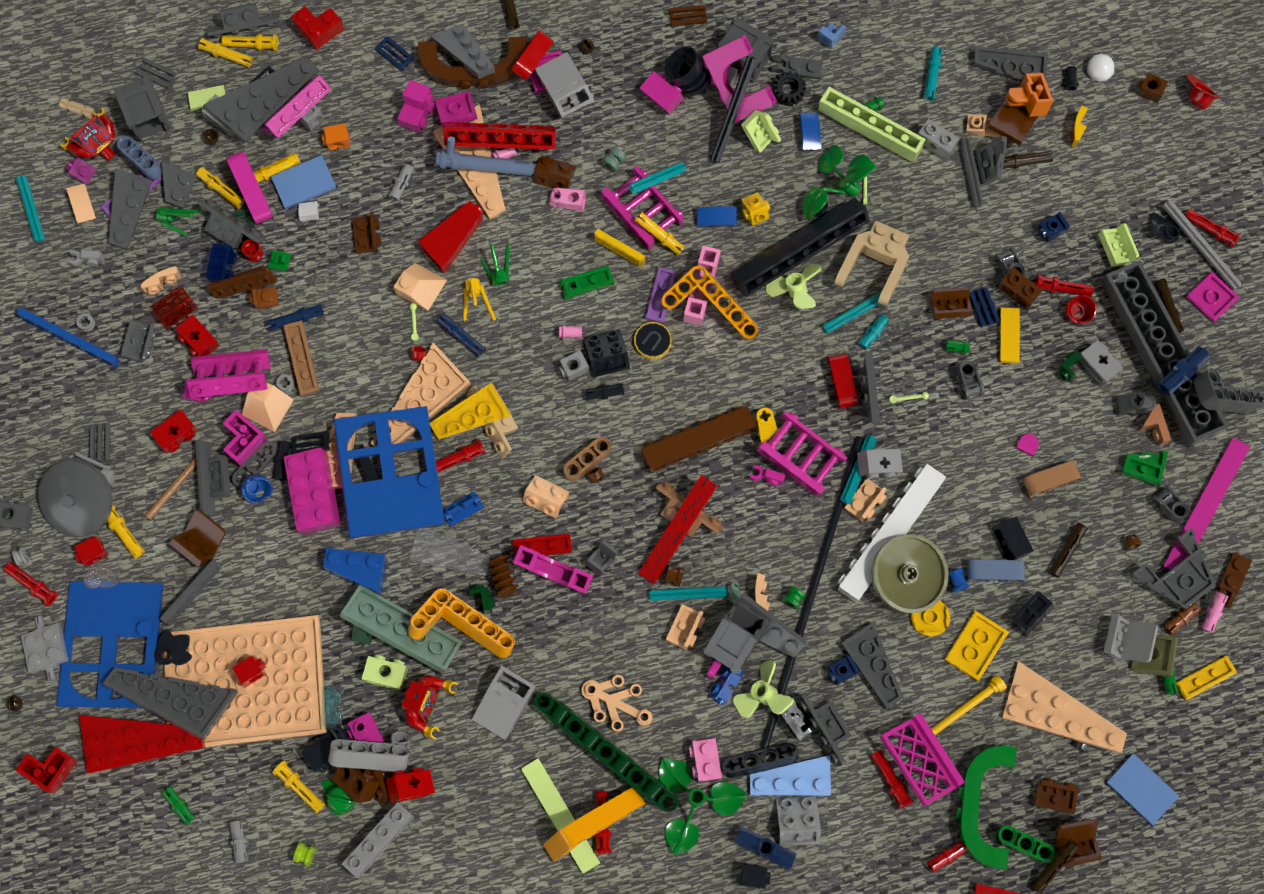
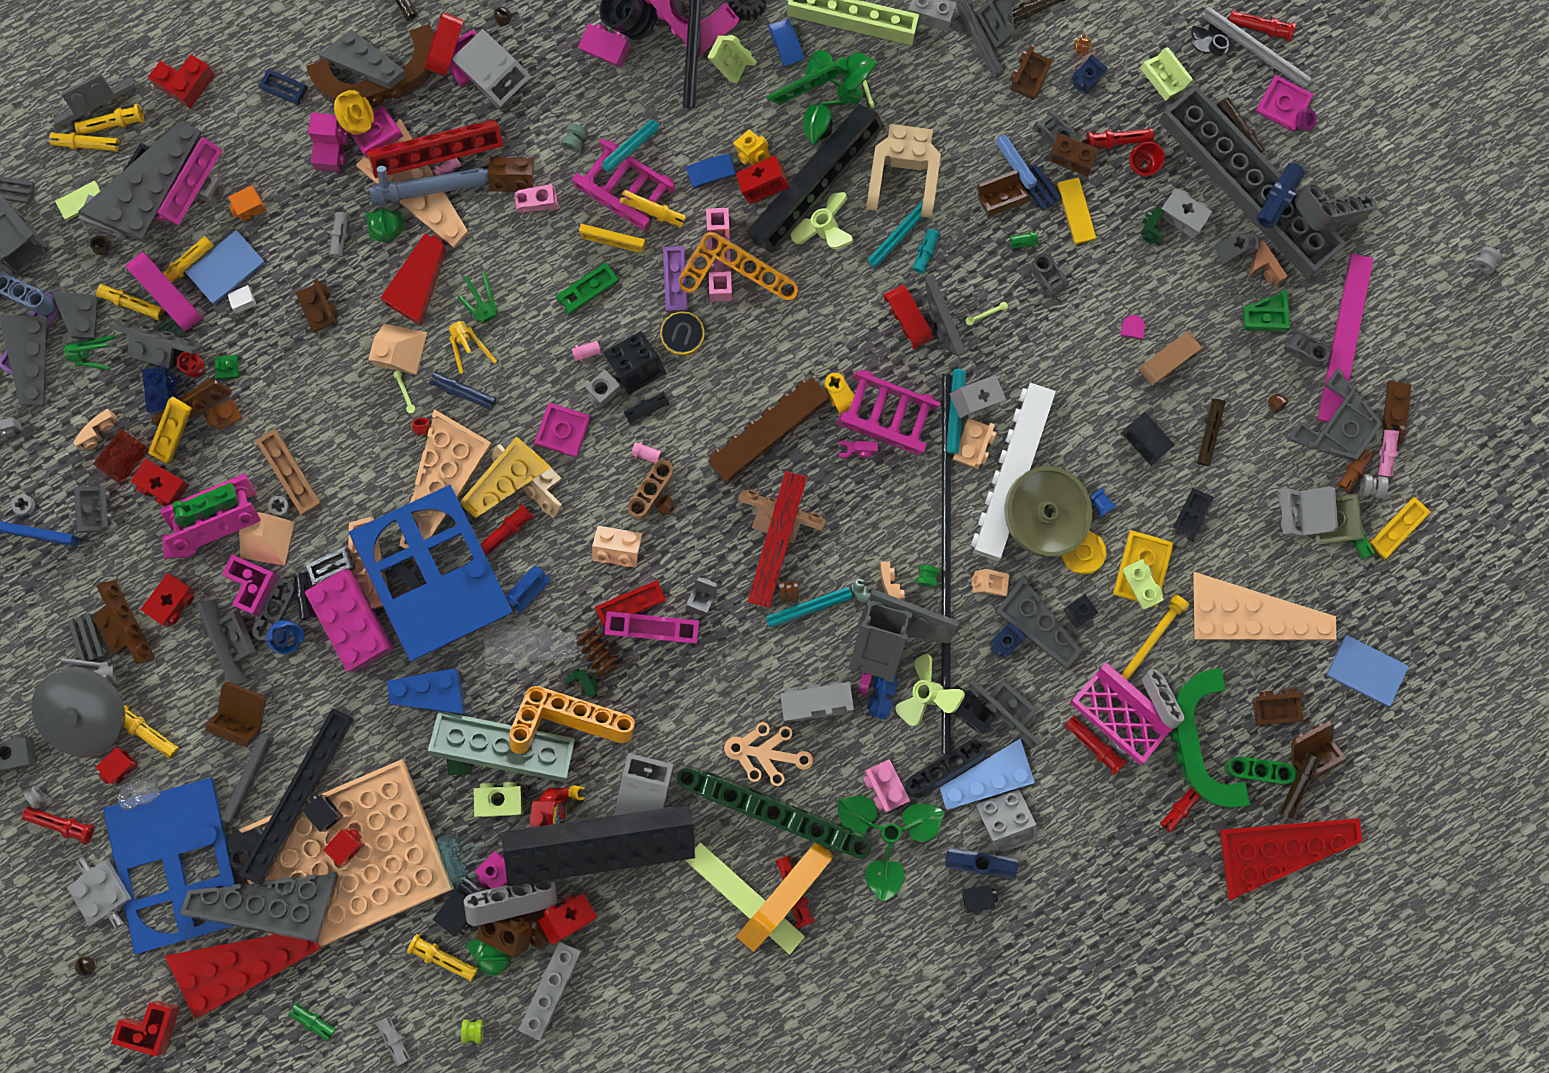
camera: 20 degrees left, 5 degrees up
(129, 440) = (119, 624): none -> reddish brown bracket
(172, 489) = (187, 666): medium nougat bar -> none
(219, 297) = (170, 430): none -> yellow tile
(224, 619) = (296, 796): none -> black tile
(227, 363) = (204, 504): none -> green plate
(241, 638) = (322, 812): none -> black brick
(302, 315) = (273, 422): dark blue pin -> none
(440, 185) = (384, 225): none -> green piece
(443, 89) = (353, 112): none -> yellow tile
(454, 732) = (598, 845): none -> black brick
(531, 389) = (562, 430): none -> dark pink tile
(592, 427) = (645, 452): none -> bright pink pin
(669, 672) = (816, 701): none -> light grey wedge
(685, 626) = (818, 646): light nougat bracket -> none
(756, 235) = (762, 180): none -> red brick
(818, 167) = (809, 81): none -> green slope
(844, 618) = (990, 582): none -> light nougat bracket
(912, 664) = (1080, 611): none -> black brick
(960, 766) = (1163, 698): none -> light grey beam
(970, 280) = (1016, 161): none -> medium blue axle
(970, 657) = (1142, 584): none -> yellowish green bracket
(999, 570) = (1139, 478): sand blue beam -> none
(1004, 213) = (1030, 74): none -> reddish brown bracket
(1055, 202) = (1082, 45): none -> clear orange plate
(1193, 636) = (1373, 486): none -> light grey wheel
(1226, 315) = (1306, 119): none -> magenta tile

